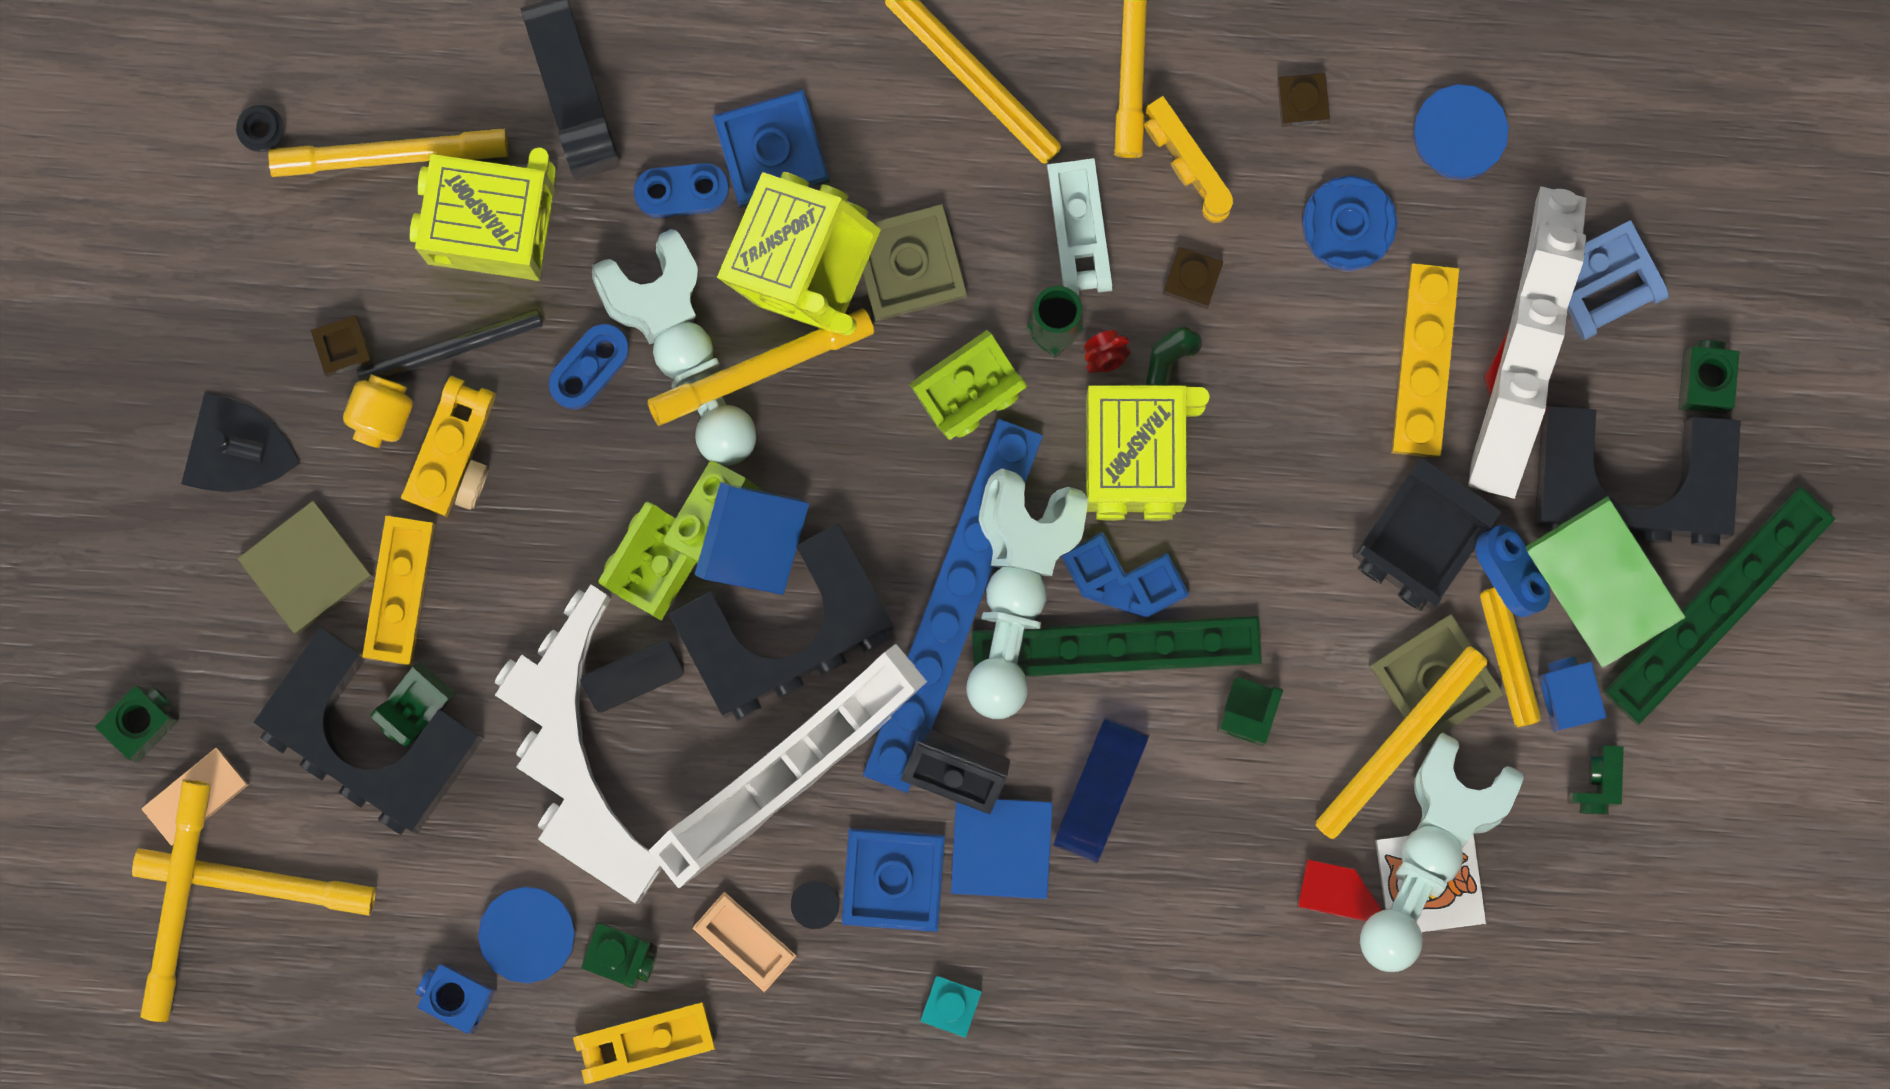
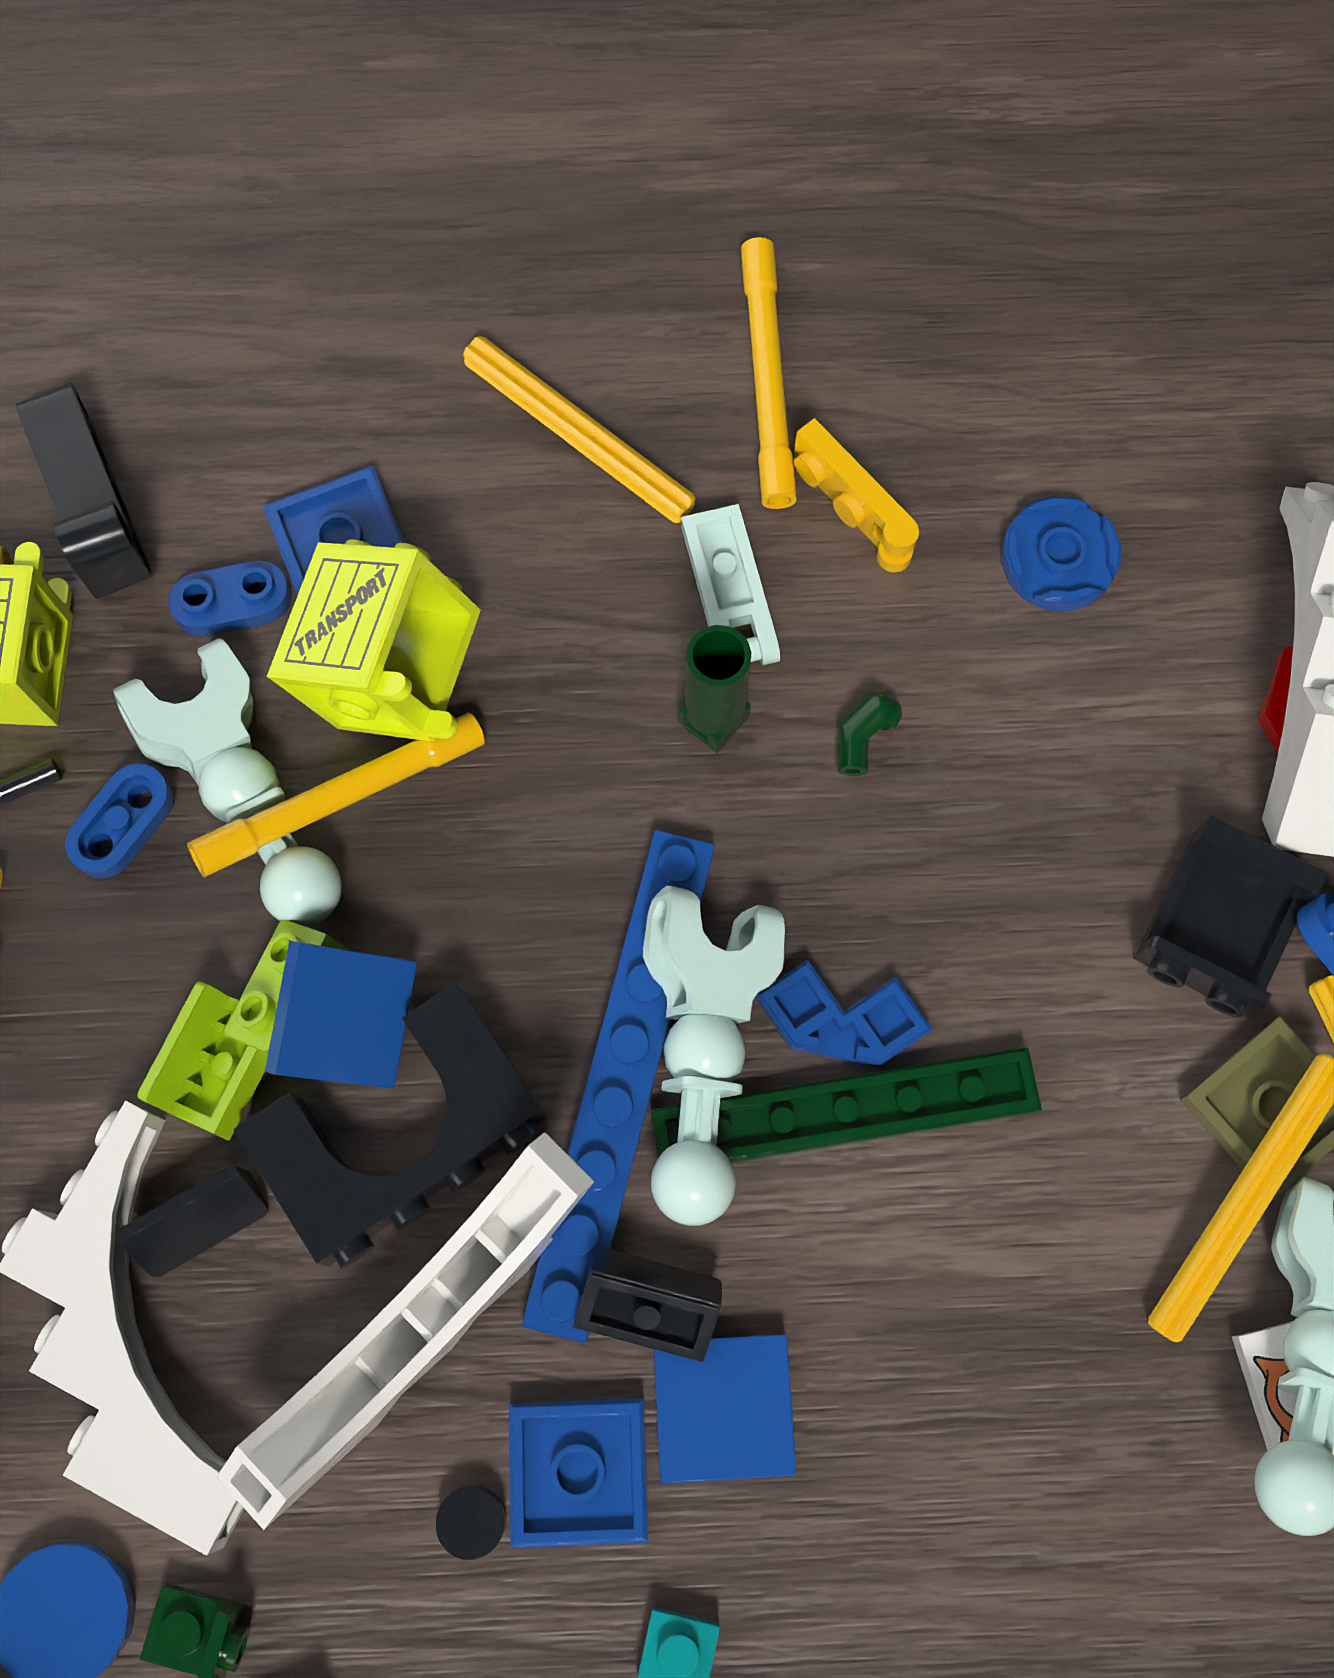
camera: 10 degrees left, 10 degrees down
(744, 942) = (375, 1589): light nougat tile -> none
(913, 265) = (526, 656): olive tile -> none
(968, 386) = (611, 792): lime bracket -> none
(1101, 790) = (851, 1311): clear blue beam -> none
(1106, 351) = (783, 732): red plate -> none
(1138, 449) = (843, 841): neon yellow container -> none
(1193, 277) = (878, 636): dark brown plate -> none
(1250, 711) = (1038, 1177): dark green panel -> none
(1303, 100) = (981, 420): dark brown plate -> none
(1336, 891) = (1196, 1418): red tile -> none
(1425, 360) = (1183, 706): yellow plate -> none
(1460, 132) = (1177, 436): blue tile -> none

